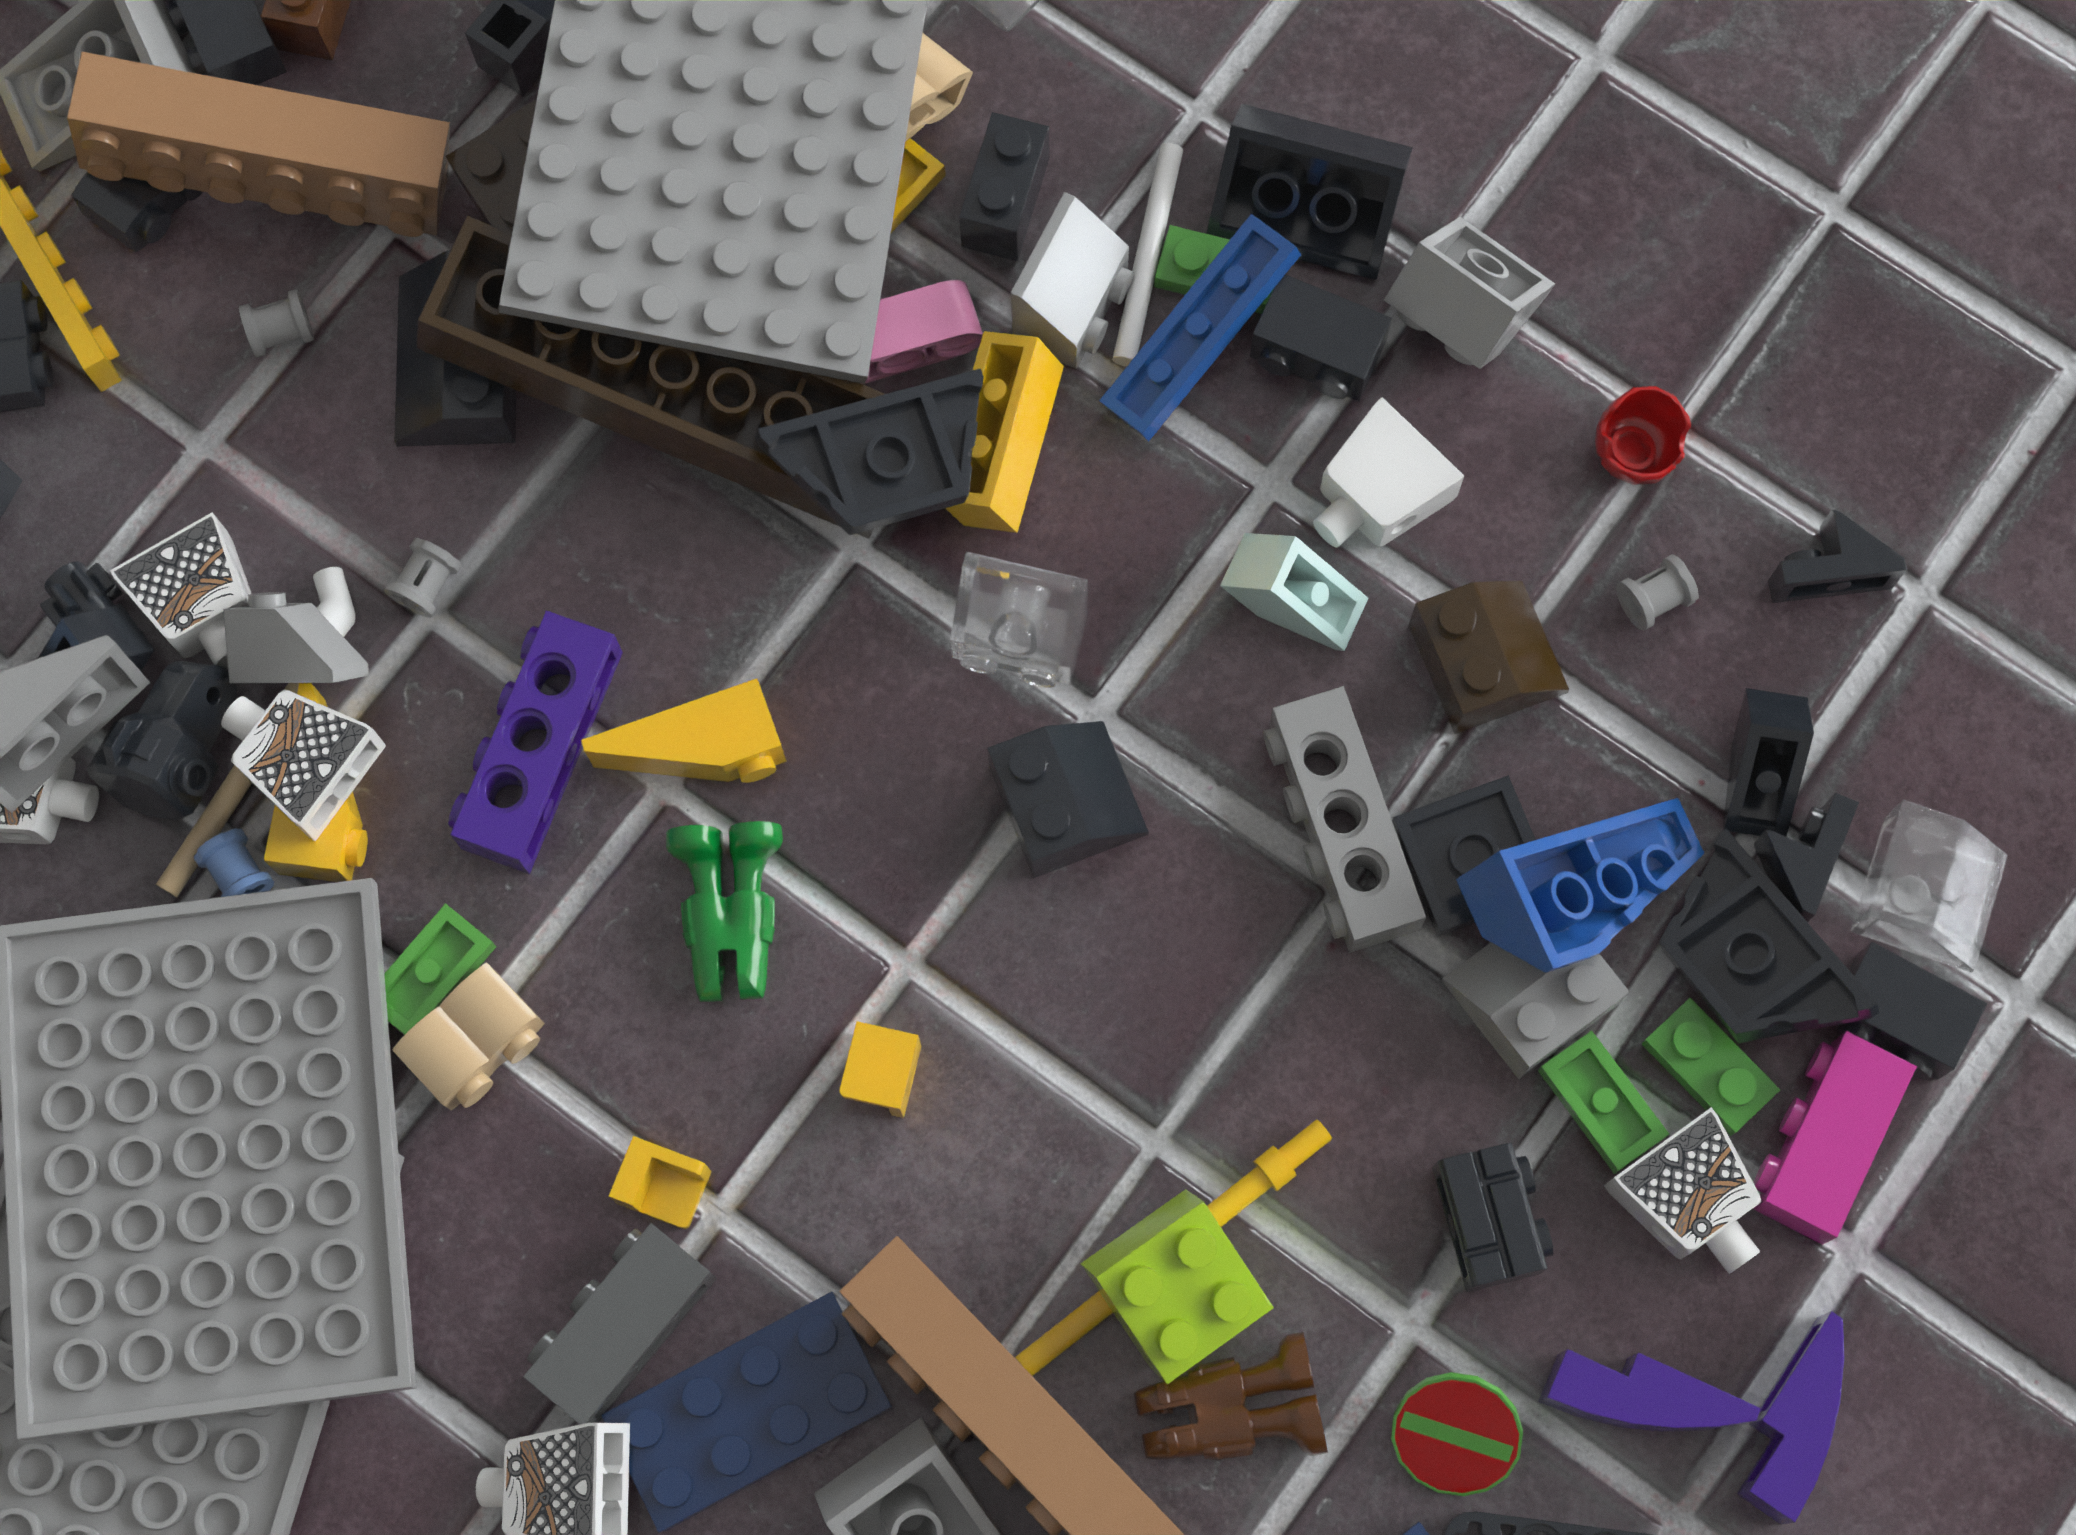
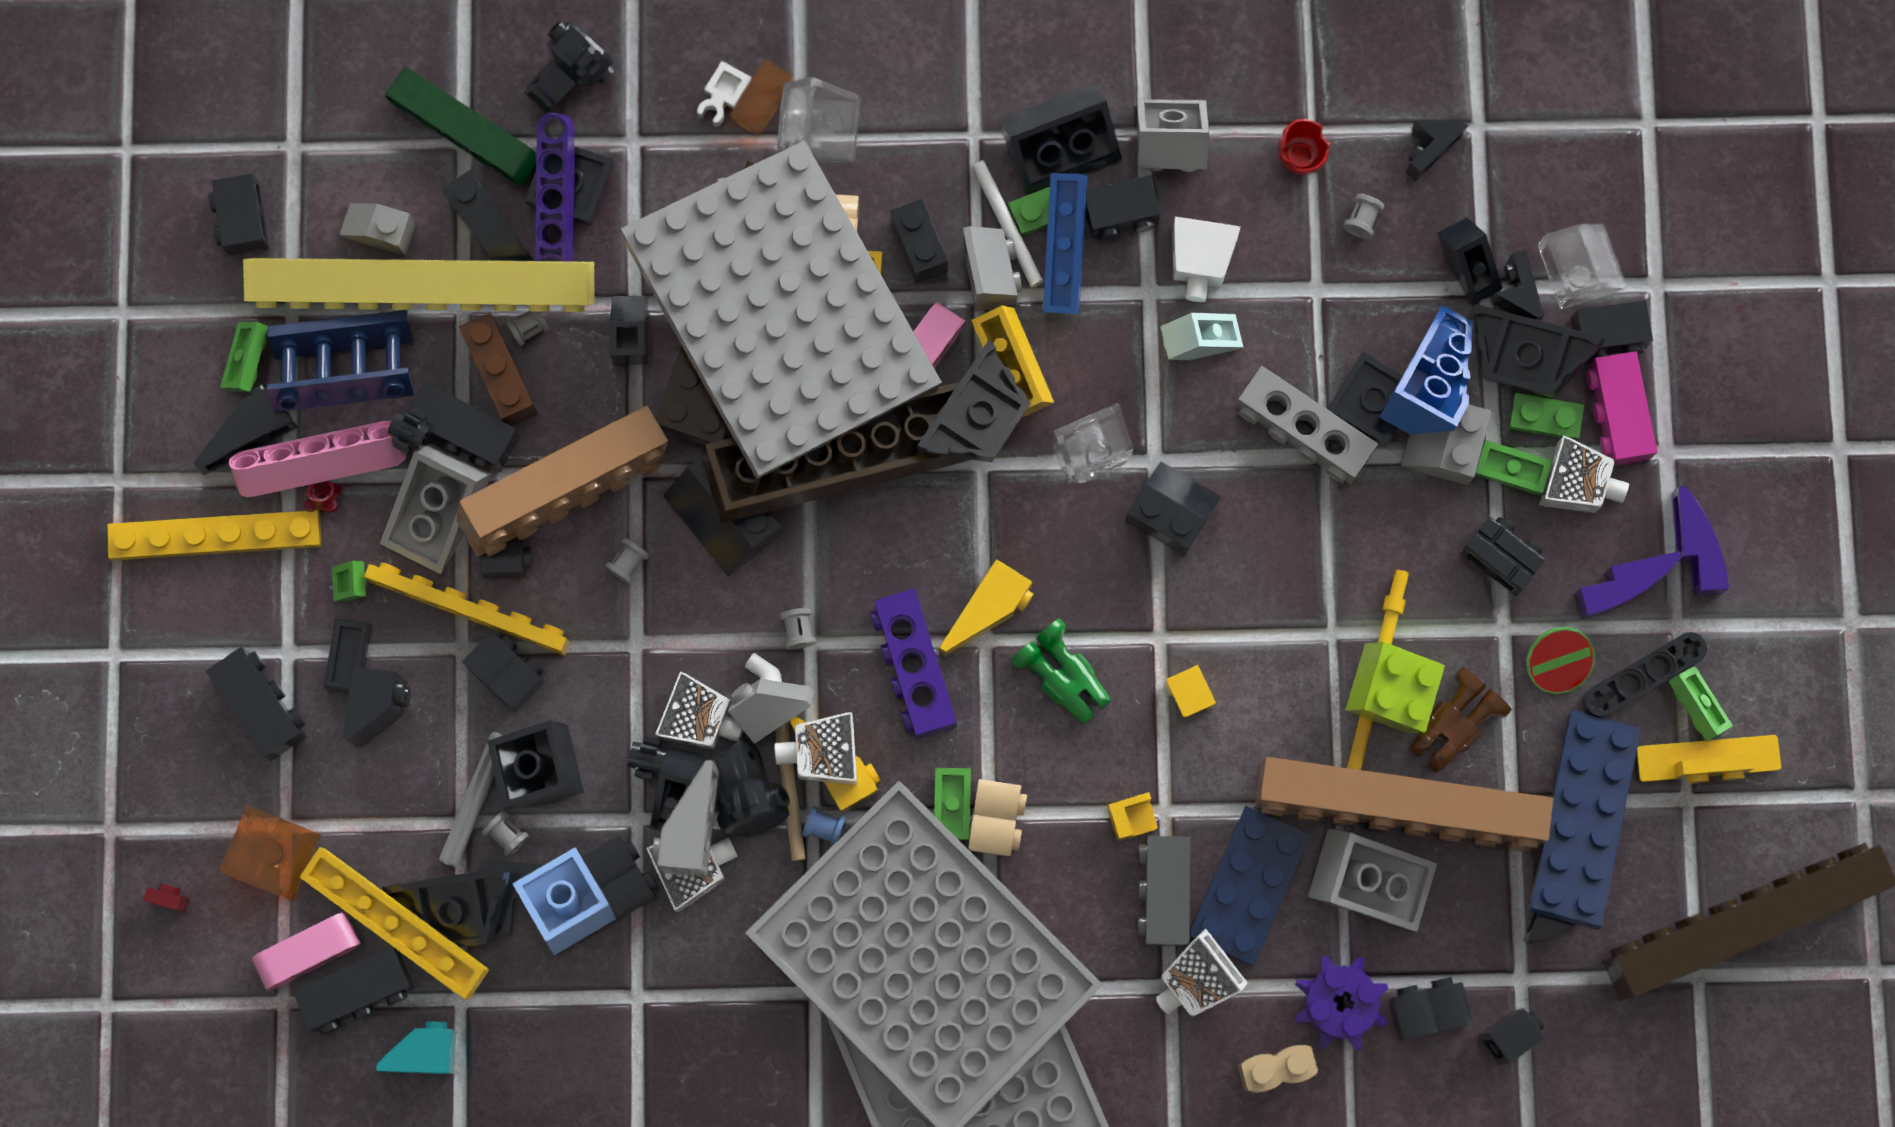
camera: 40 degrees left, 5 degrees up
(1485, 652) = (1308, 301): dark brown slope -> none

